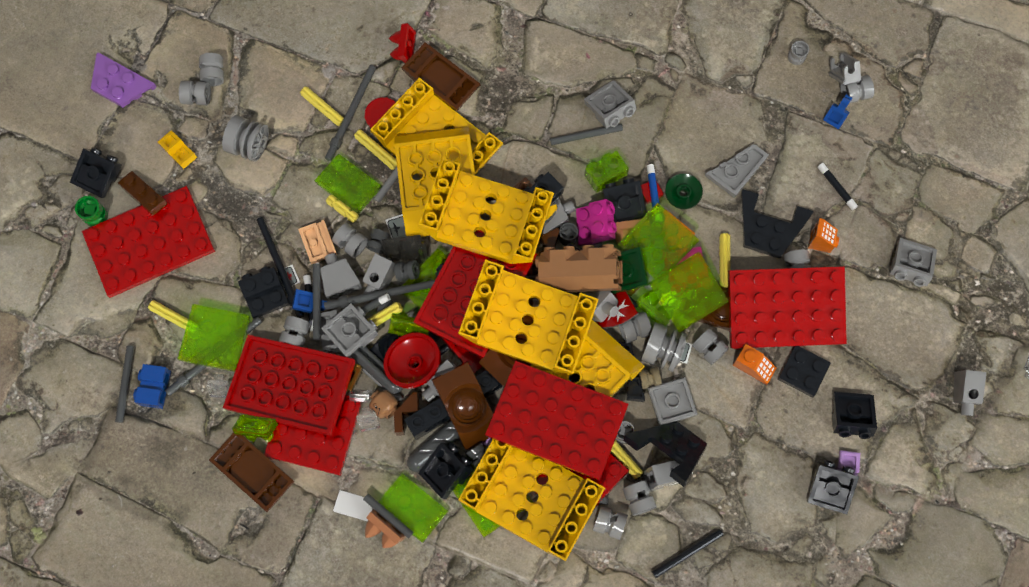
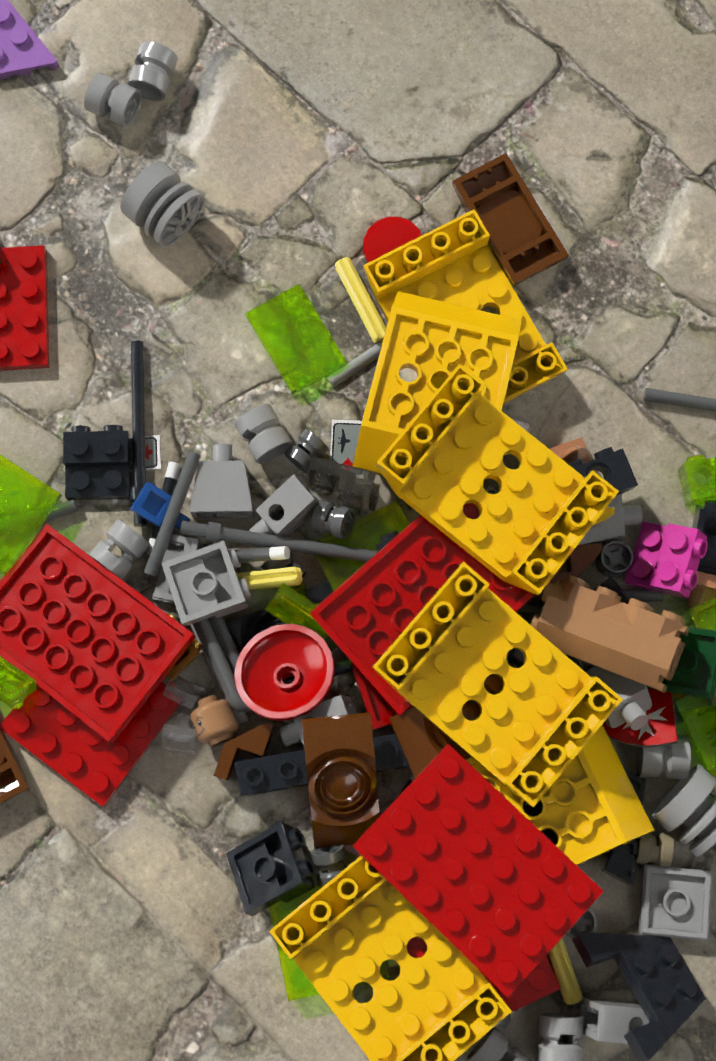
camera: 20 degrees right, 5 degrees up
(177, 149) = (52, 181): yellow slope -> none
(317, 241) = (211, 415): light nougat plate -> none
(322, 106) = (303, 196): light yellow axle -> none
(336, 142) = (302, 263): dark grey bar -> none
(342, 208) = (271, 375): light yellow axle -> none
(352, 505) = (107, 862): white sticker -> none
(376, 524) = (137, 908): nougat tile -> none
(388, 516) = (152, 905): dark grey bar -> none
(406, 41) = (477, 136): red tile -> none
(413, 507) = (195, 905): clear neon green plate -> none
(446, 434) = (243, 826): dark grey piece -> none

